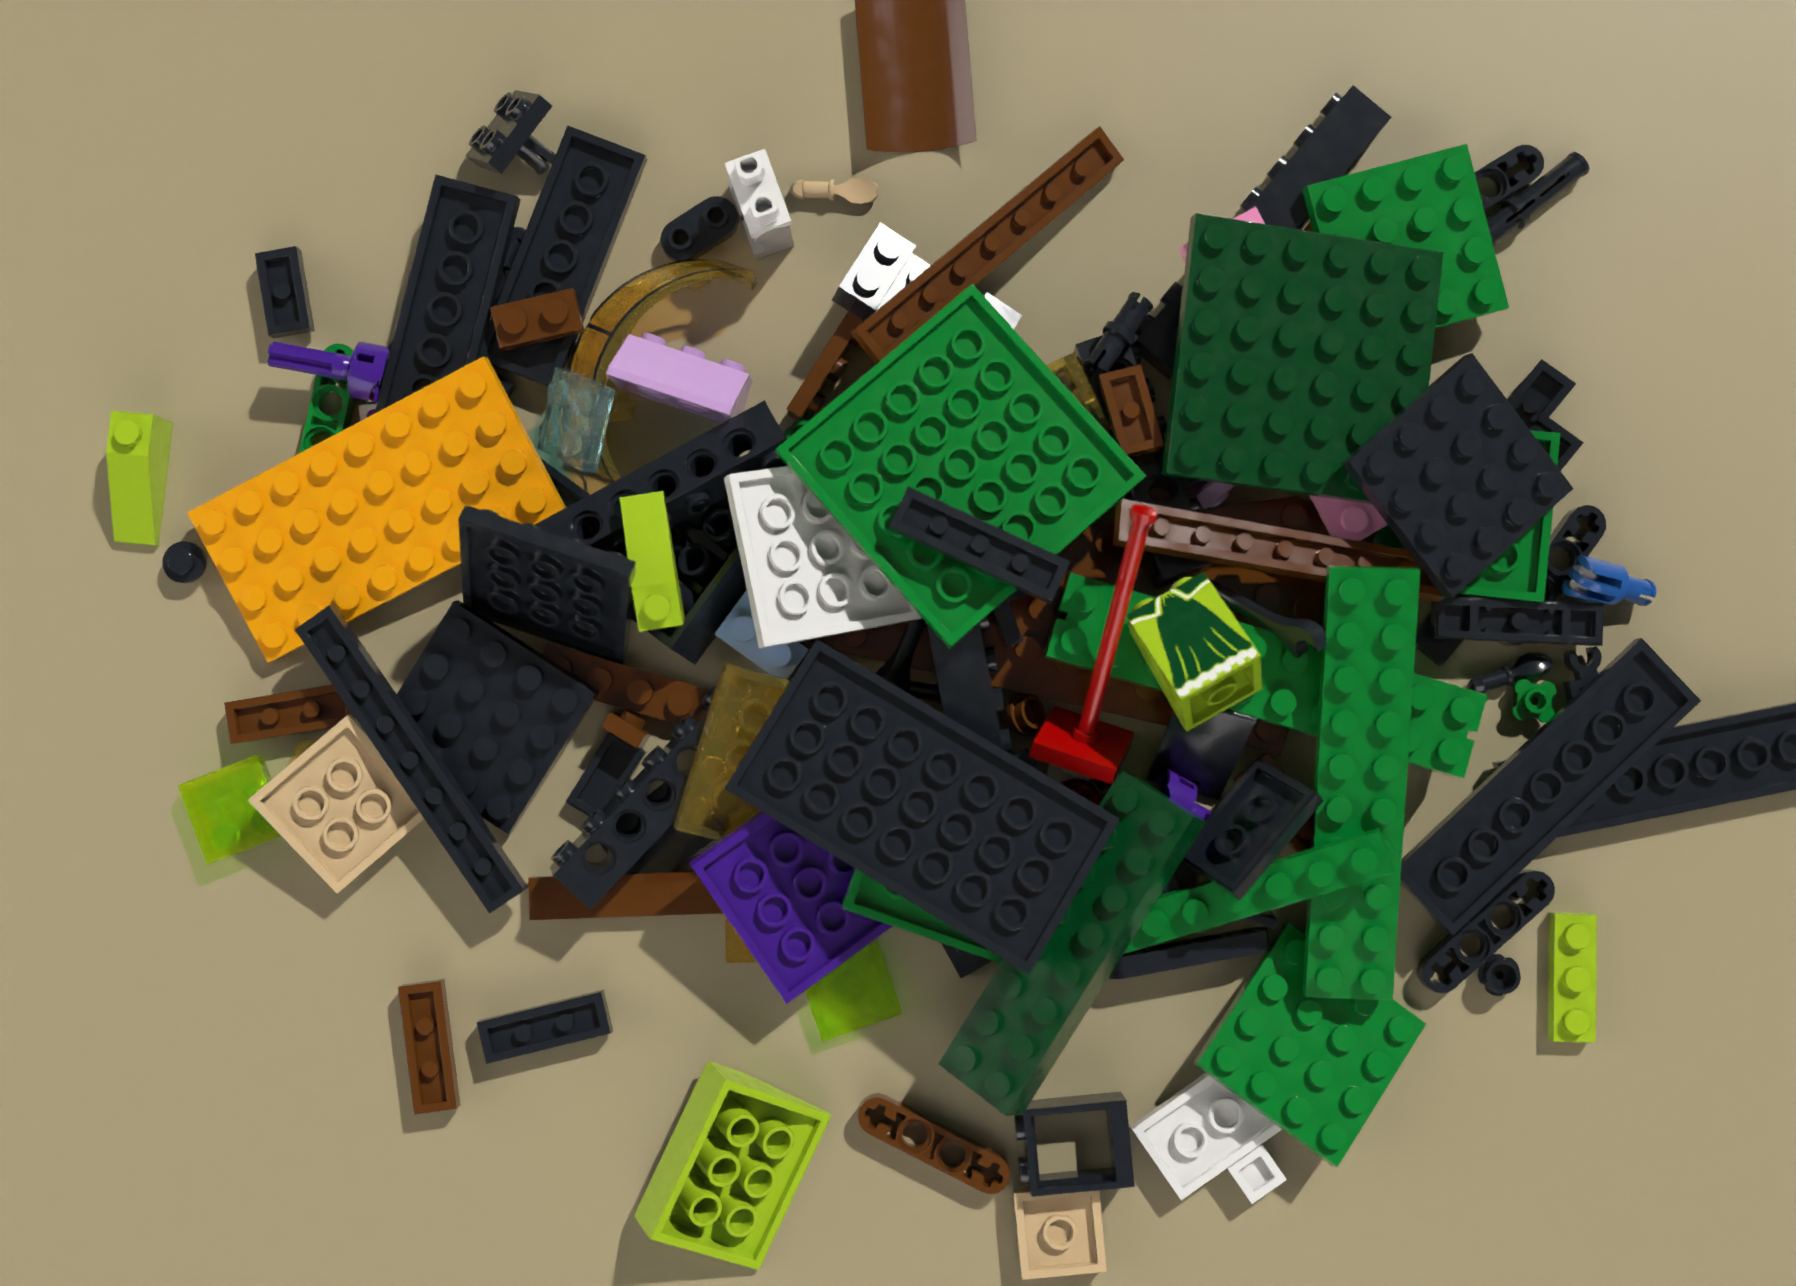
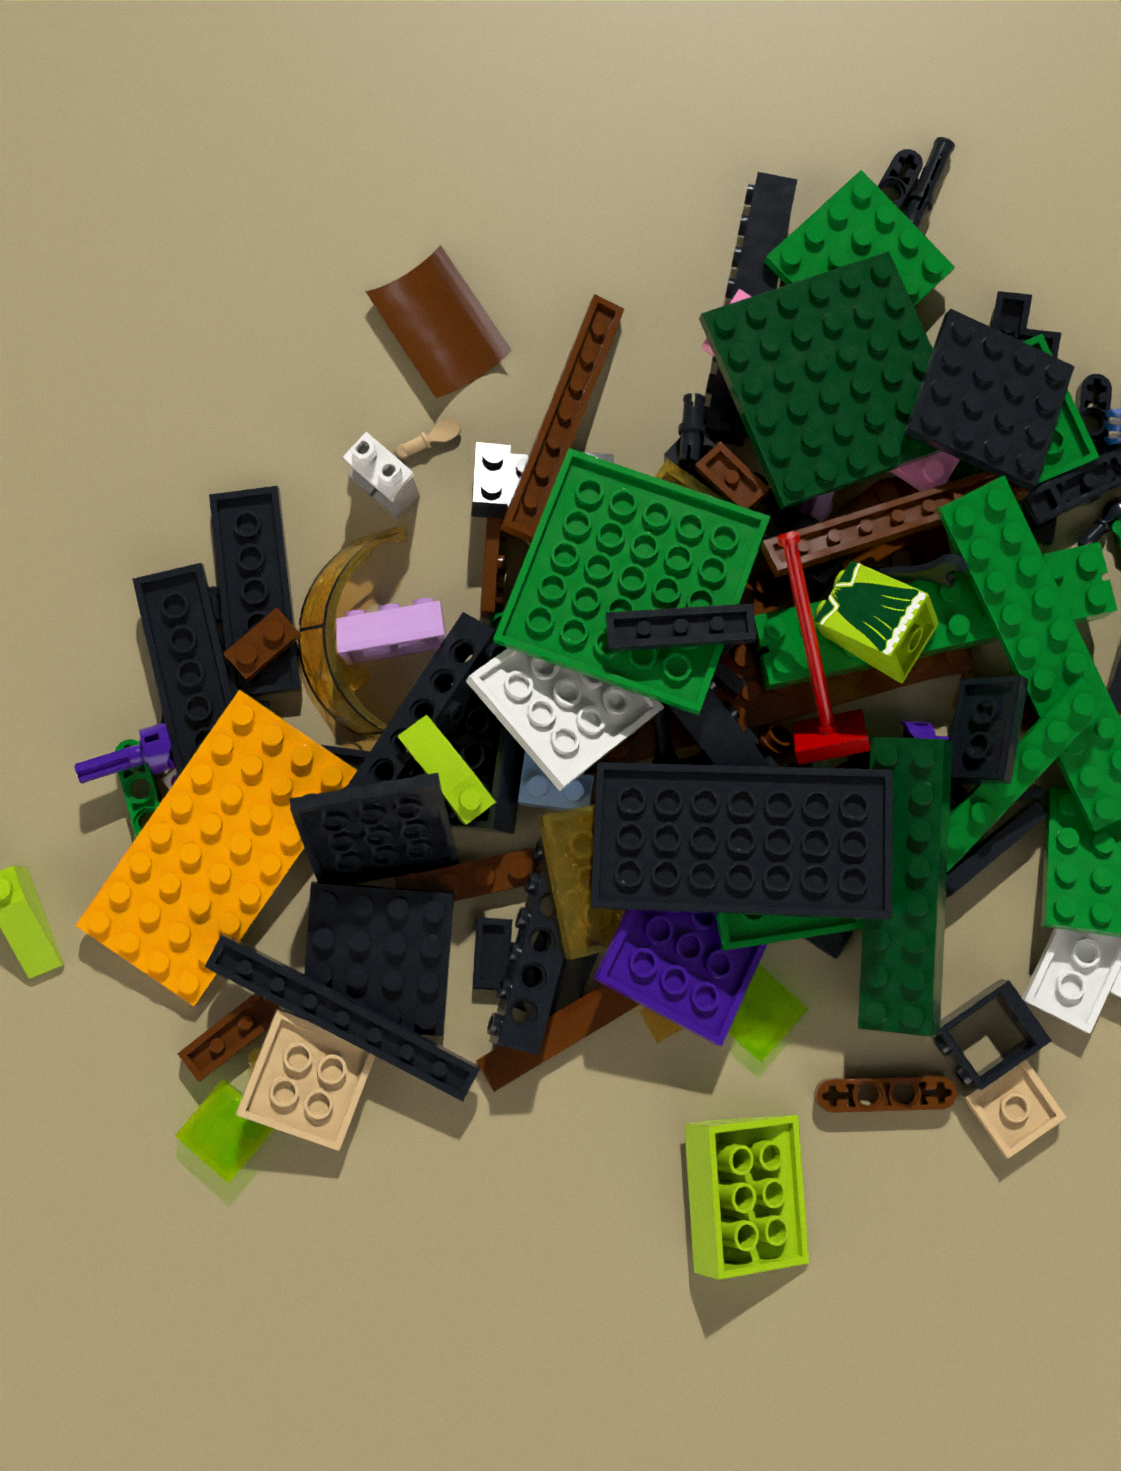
camera: 25 degrees left, 5 degrees down
(184, 562) = (91, 965): black plate -> none
(284, 292) = (62, 725): black plate -> none
(429, 1046) = (470, 1230): reddish brown plate -> none
(511, 134) = (172, 521): black plate -> none
(544, 1026) = (548, 1166): black plate -> none
(575, 419) = (330, 701): clear light blue plate -> none
(627, 727) = (489, 907): reddish brown plate -> none
(701, 231) = (346, 518): black plate -> none
(1204, 752) = (920, 696): black container -> none

